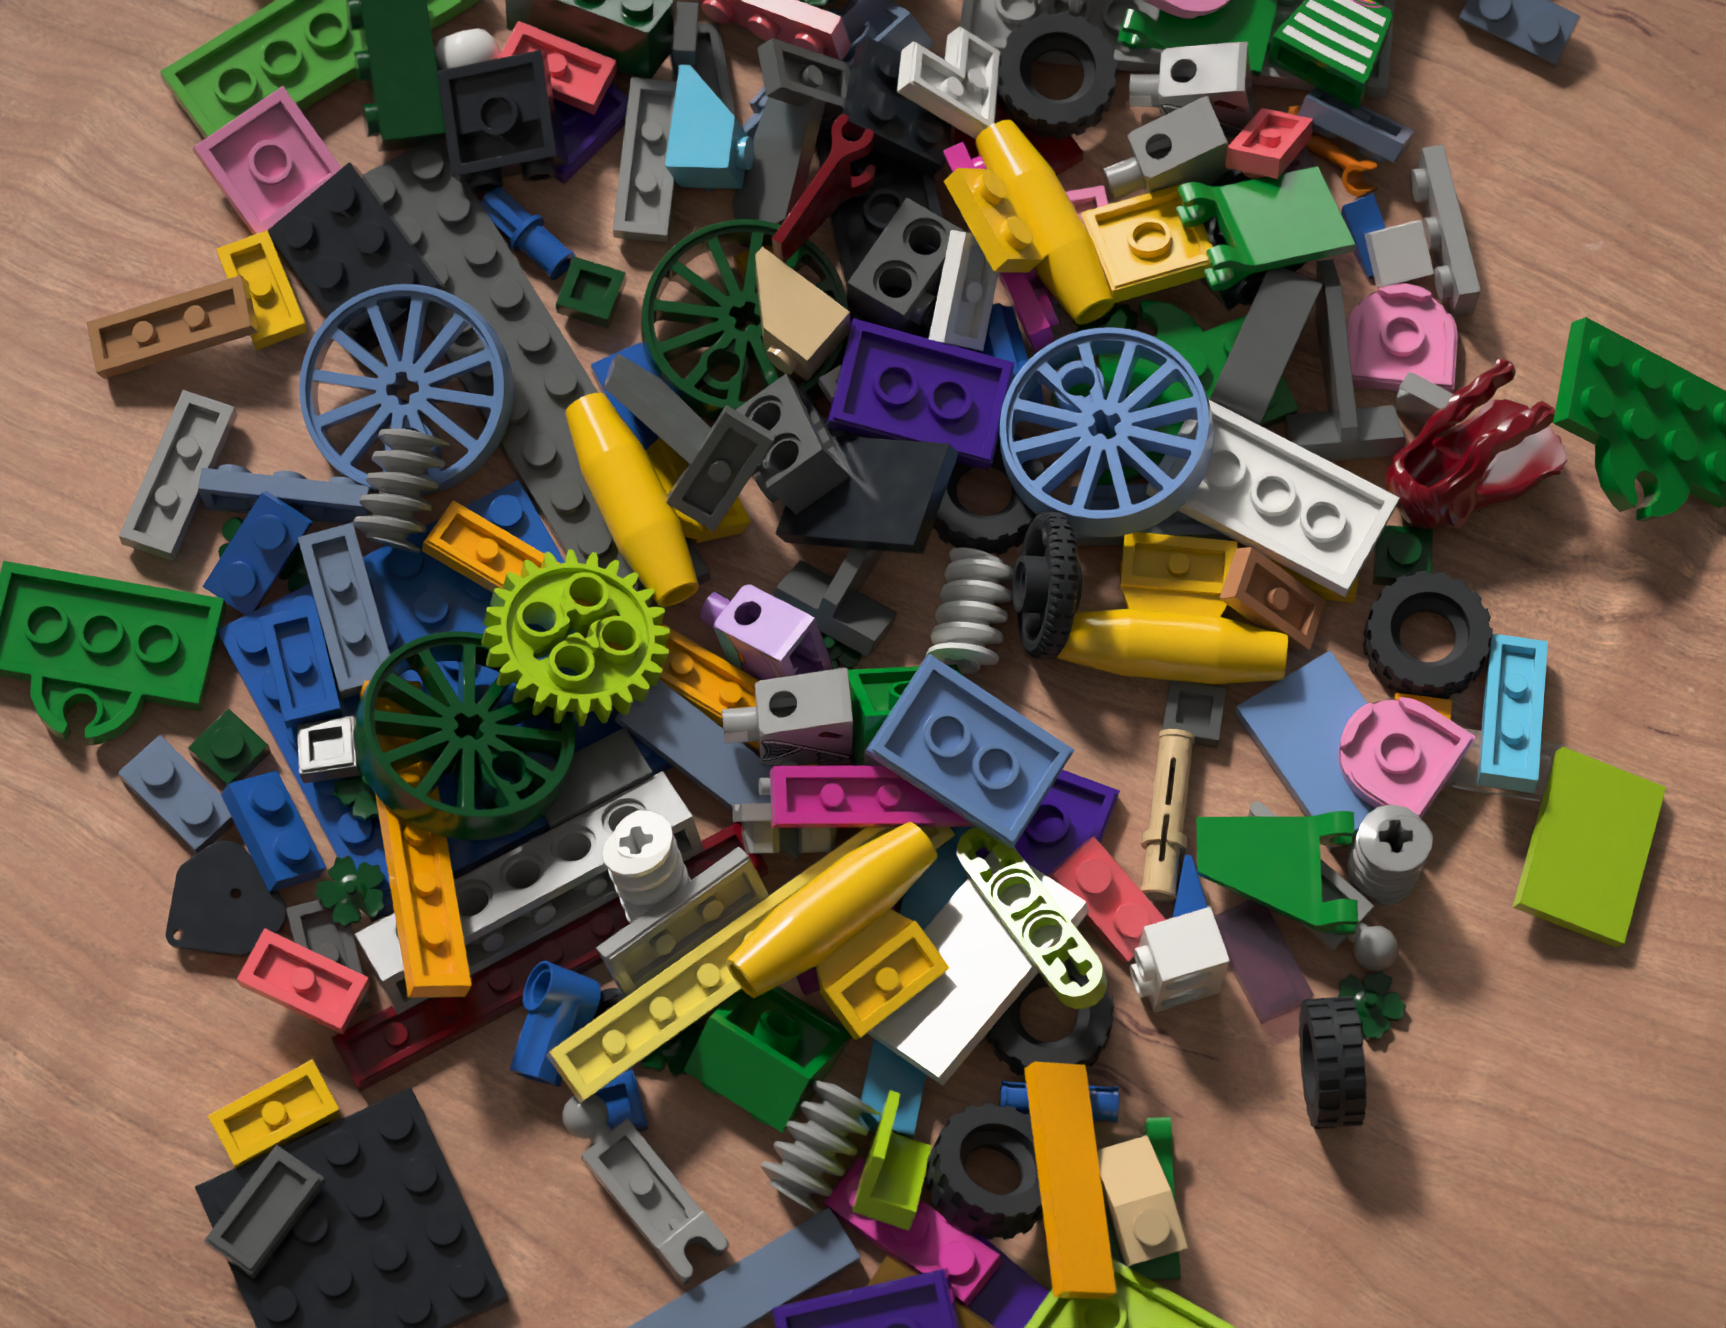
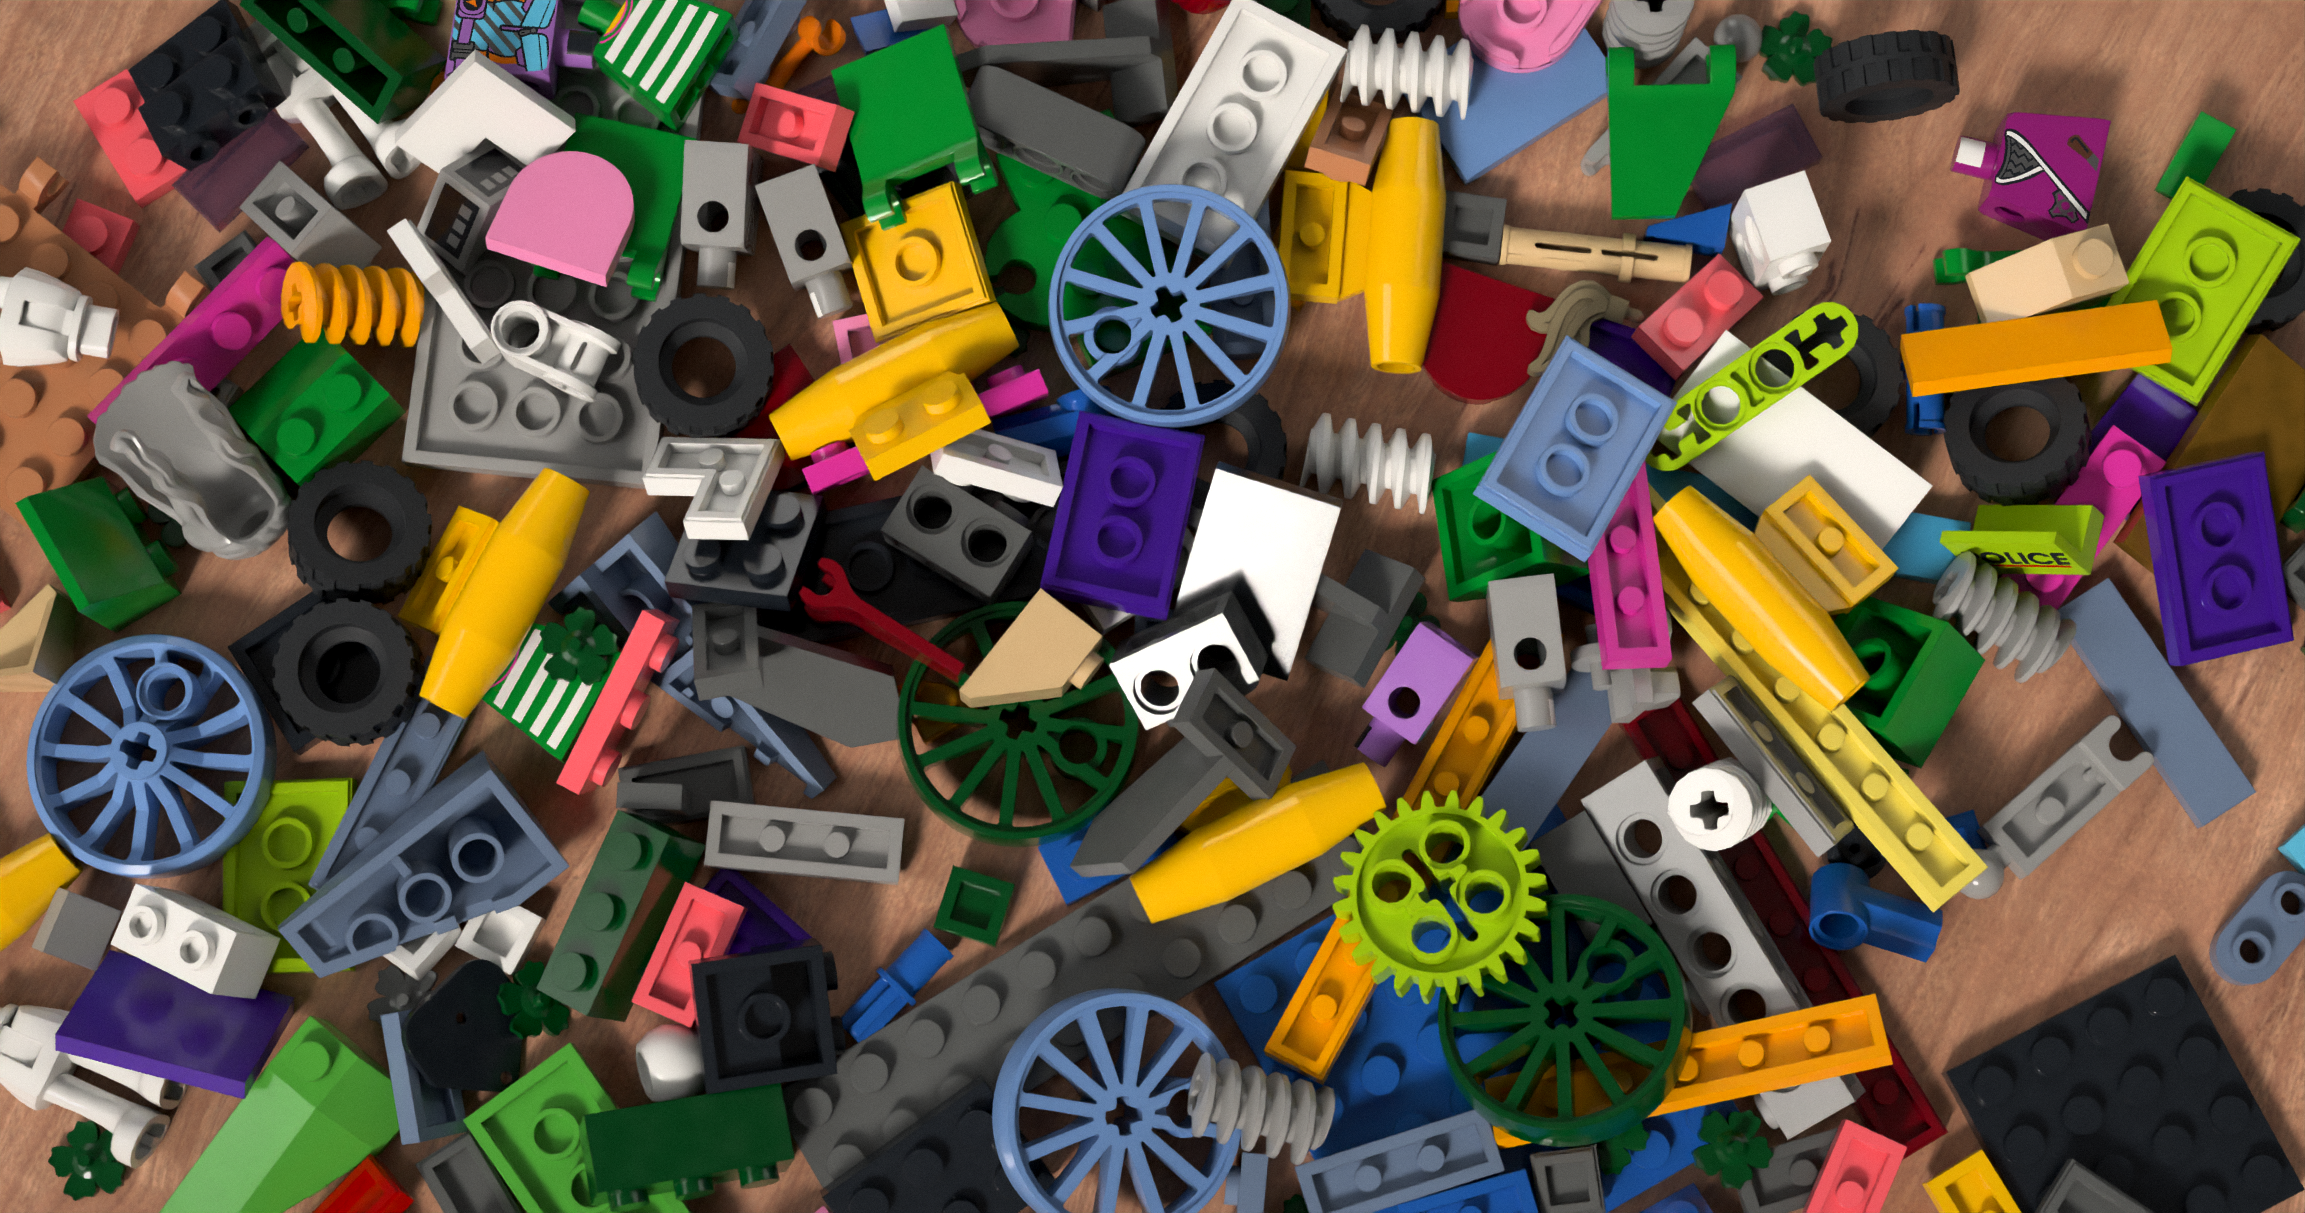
camera: 85 degrees left, 10 degrees up
(705, 138) = (784, 771): medium azure slope -> none
(1047, 585) = (1361, 368): black wheel -> none
(1095, 716) = (1482, 337): none -> dark red tile
(1104, 786) = (1572, 316): none -> dark tan piece
(1249, 1212) = (2037, 171): none -> magenta torso
(1327, 644) = (1408, 71): none -> white piece

